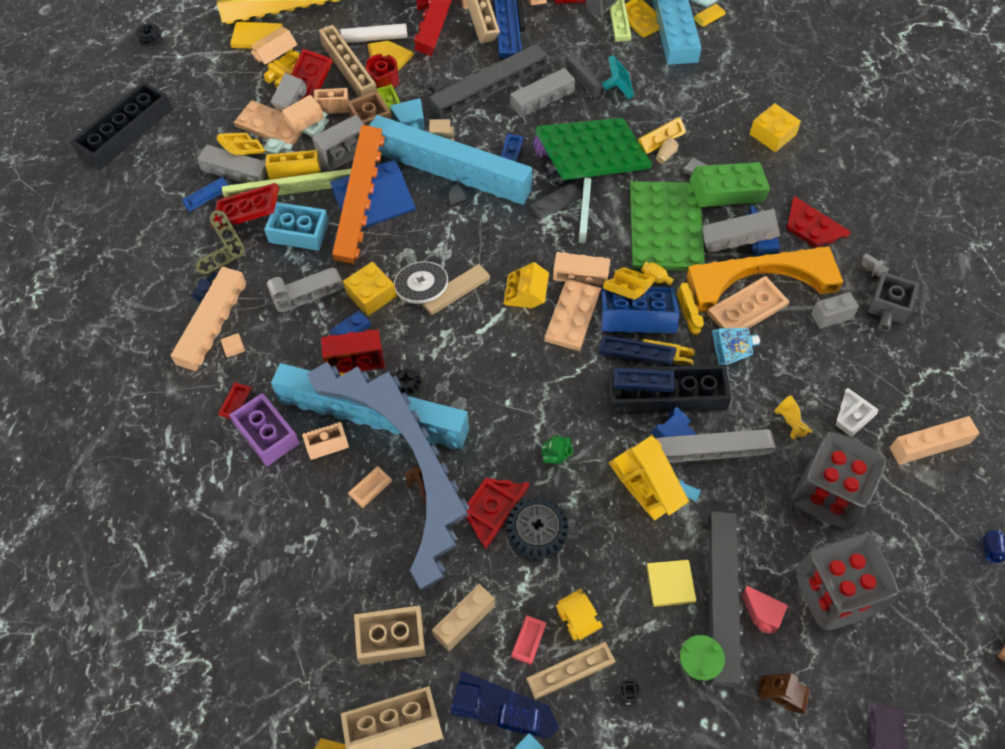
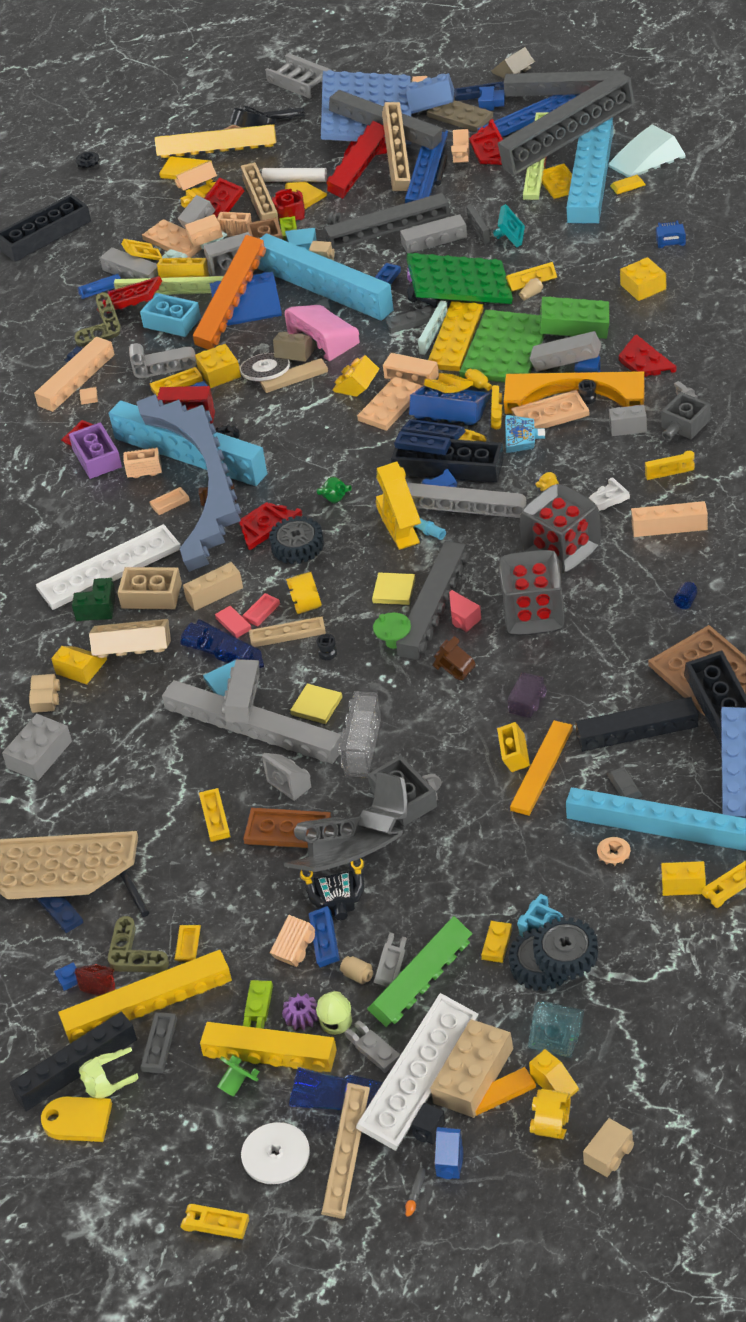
camera: 20 degrees right, 15 degrees down
(325, 604) = (109, 564): none -> white plate
(328, 315) = (181, 379): none -> yellow plate
(332, 668) = (95, 604): none -> dark green brick
(446, 255) = (293, 346): none -> dark tan slope
(471, 225) = (323, 326): none -> bright pink windscreen
(502, 665) = (233, 621): none -> coral tile
(610, 217) = (456, 335): none -> yellow plate
(777, 69) = (670, 234): none -> blue piece
(777, 275) = (587, 391): none -> black wheel
(901, 364) = (670, 465): none -> yellow plate

